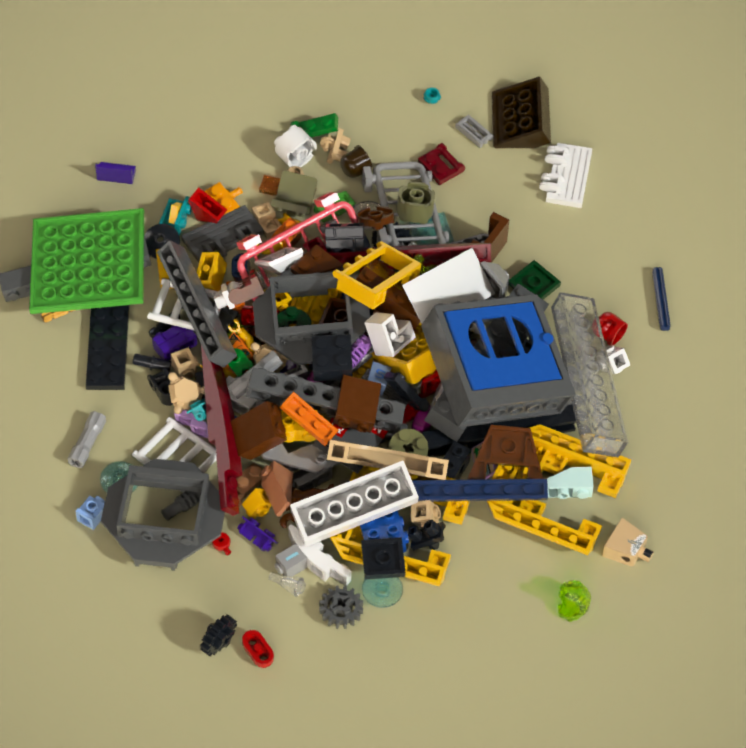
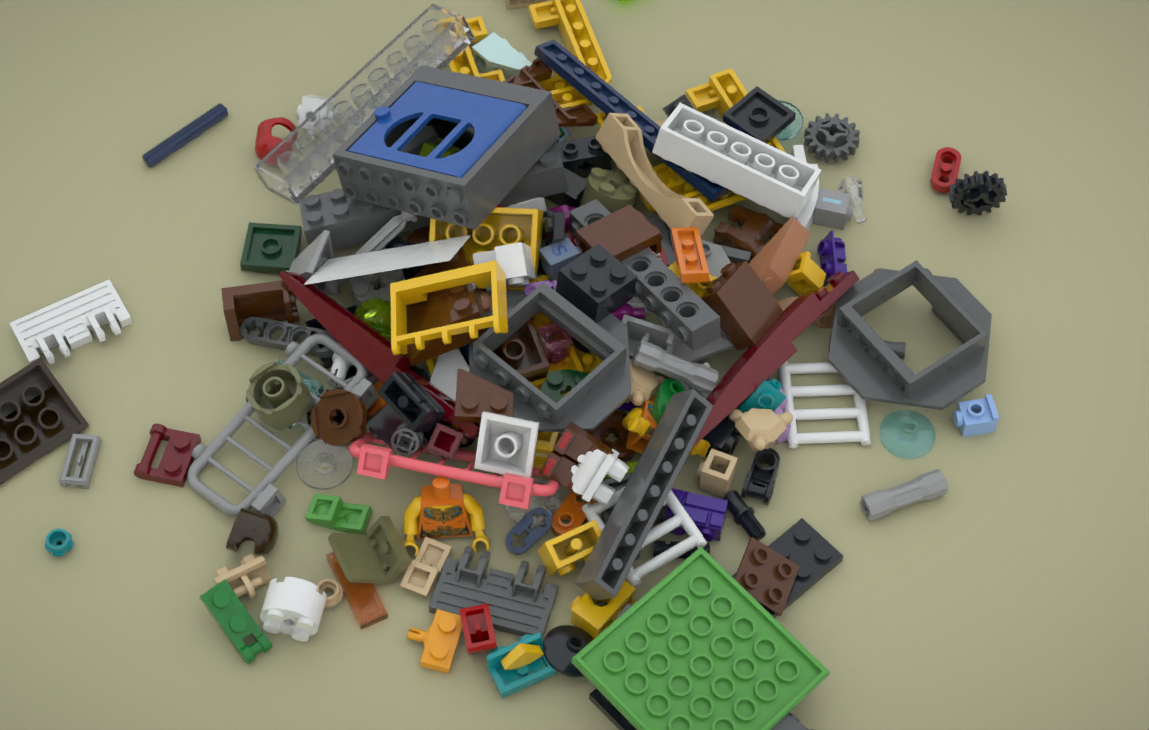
camera: 130 degrees left, 0 degrees up
(107, 333) = (766, 575): none -> reddish brown hinge

